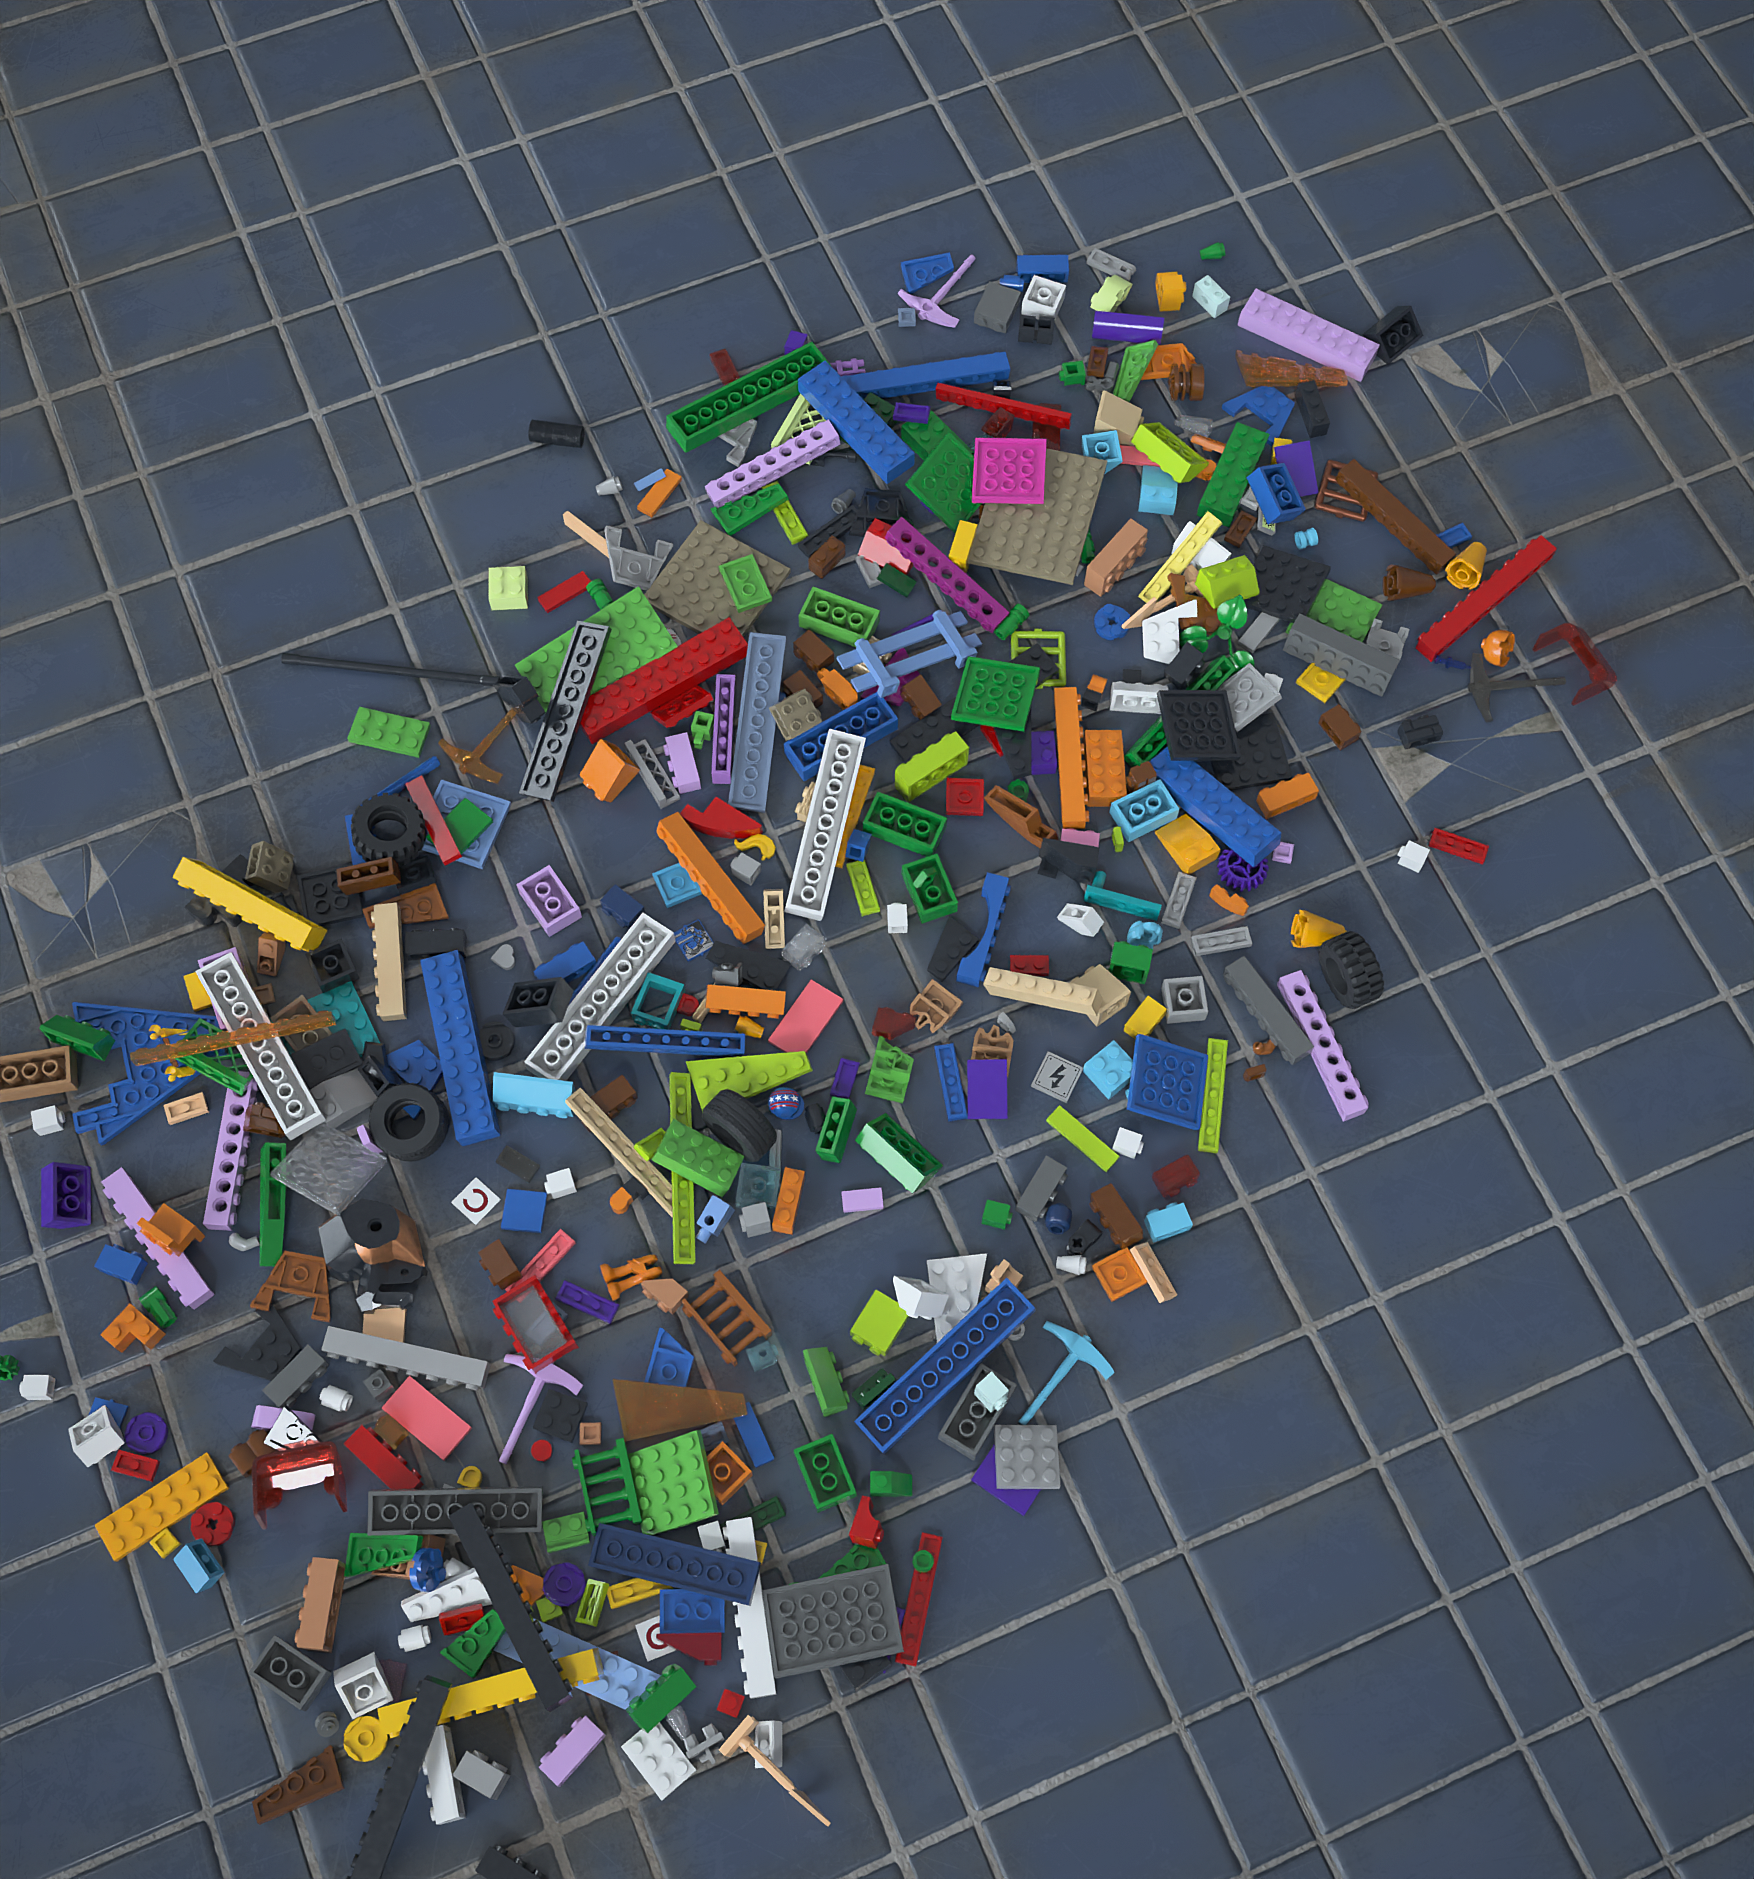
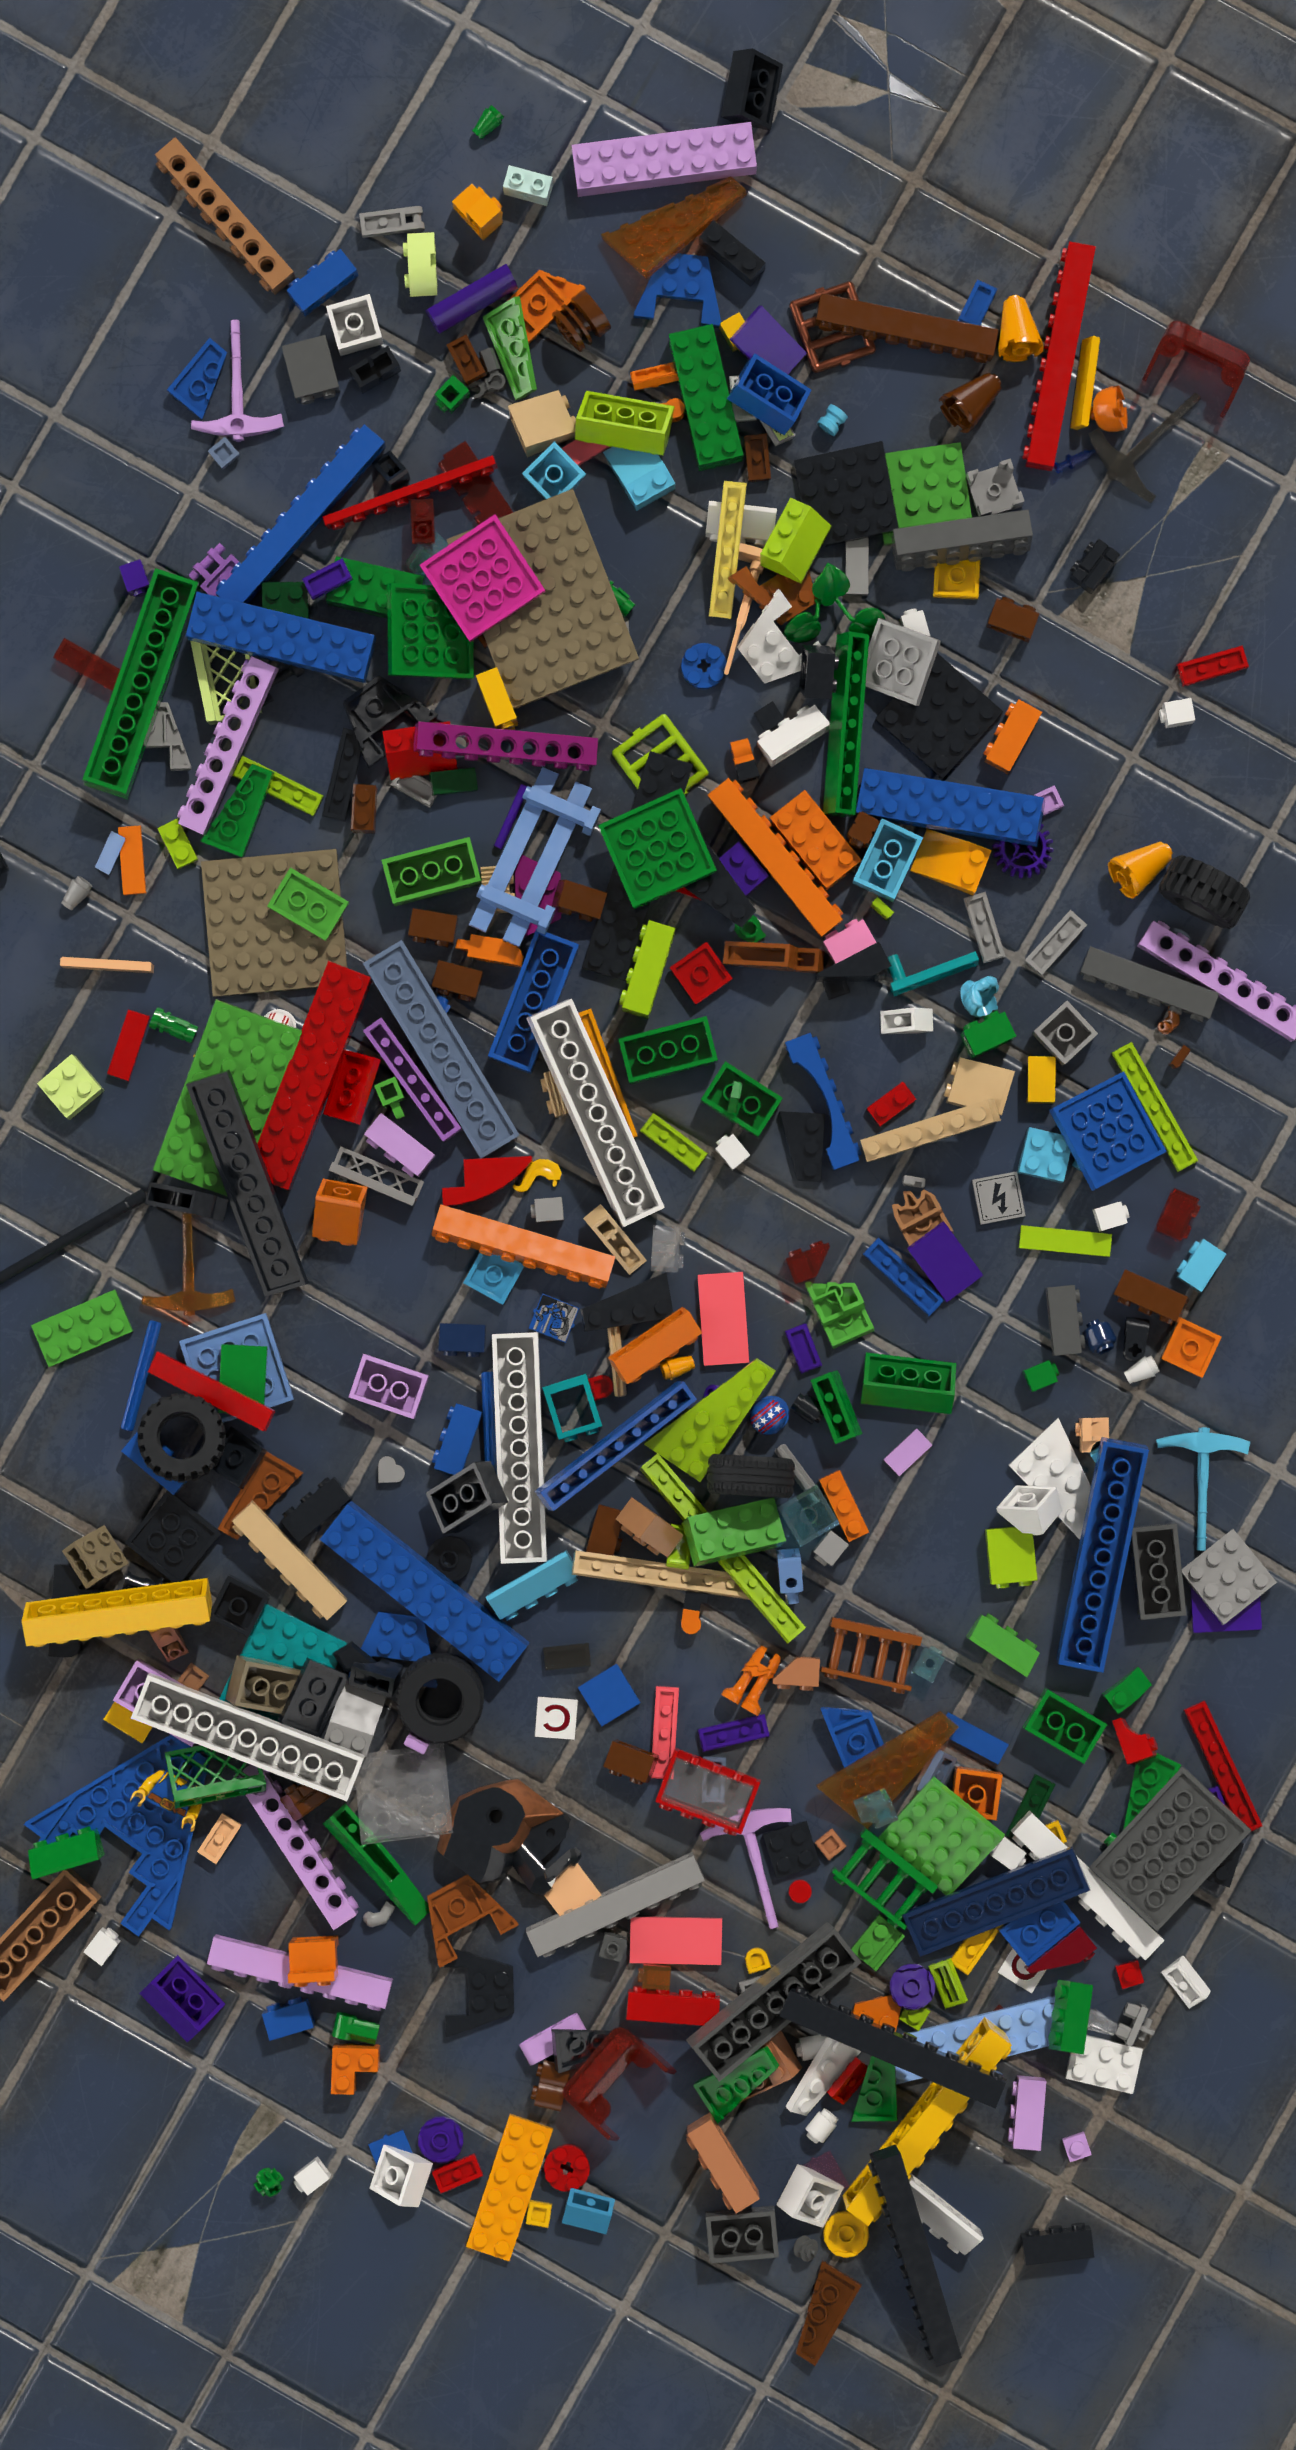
camera: 30 degrees left, 20 degrees up
(228, 1039) = (218, 1761): clear orange plate -> none
(296, 1378) = (533, 1995): dark grey brick -> none
(336, 1398) = (583, 1985): white brick -> none
(368, 875) = (201, 1496): reddish brown brick -> none
(428, 1561) = (792, 2068): blue plate -> none
(482, 1775) = (971, 2189): light grey brick -> none
(560, 1183) = (622, 1646): white brick -> none
(587, 1809) = (1076, 2146): none -> lavender plate
(633, 567) = (178, 969): light grey wing -> none
(641, 1112) = (648, 1528): none -> medium nougat brick
(641, 1427) = (876, 1808): none -> clear light blue brick
(688, 1025) = (624, 1410): lime plate -> none
(695, 503) = (177, 844): none -> lime plate
(728, 975) = (621, 1335): dark grey brick -> none
(741, 1738) = (1248, 2006): light nougat piece -> none
(795, 714) = (476, 1016): dark tan brick -> none
(843, 501) = (329, 730): dark grey cone -> none
(858, 845) = (638, 1104): blue brick -> none
(873, 1388) = (1049, 1618): dark green bracket -> none
(923, 1561) = (1204, 1735): green tile -> none
(934, 1006) = (835, 1215): medium nougat plate -> none
(991, 1392) = (1165, 1553): light aqua brick -> none
(1010, 623) = (606, 748): green axle -> none
(1012, 200) = (175, 153): none -> medium nougat brick
(1013, 282) = (304, 327): blue brick -> none
(1116, 558) = (659, 589): nougat brick -> none
(1153, 1272) = (1220, 1323): light nougat plate -> none
(1197, 425) = (630, 362): clear slope -> none
(1198, 725) = (880, 732): black plate -> none
(1233, 904) = (1041, 893): orange slope -> none
(1492, 623) = (1085, 382): none -> yellow tile

